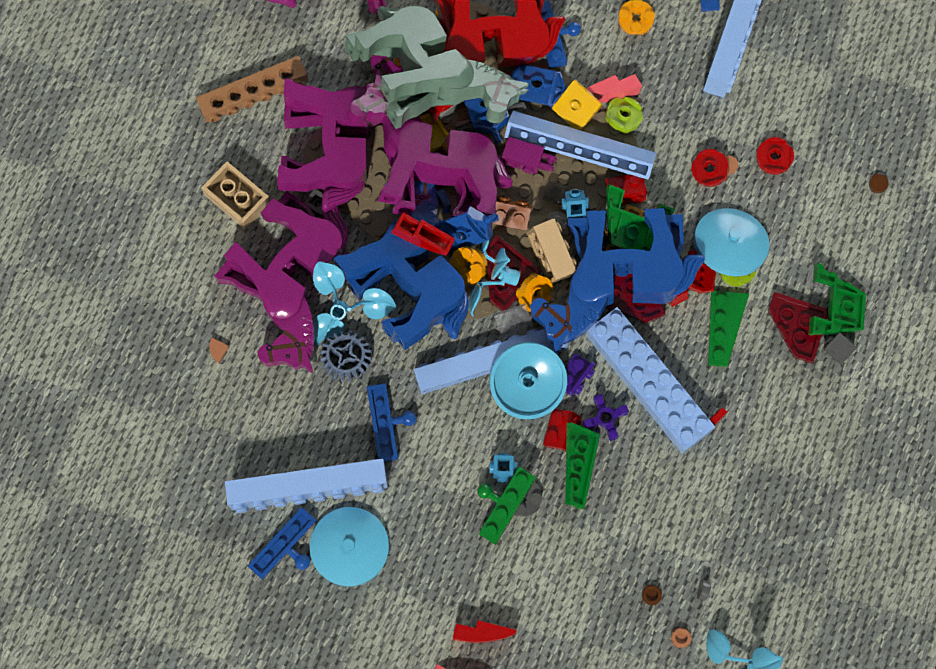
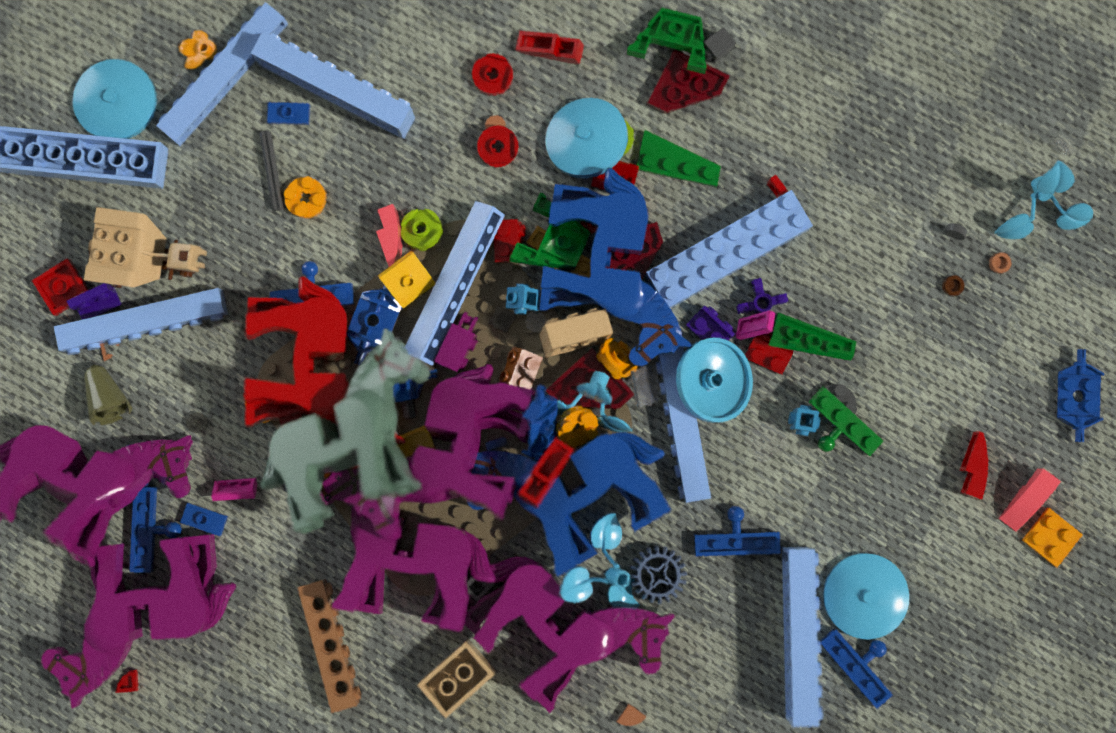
camera: 80 degrees left, 10 degrees up
(584, 410) = (755, 325): none -> dark pink plate
(809, 202) = (550, 46): none -> red slope

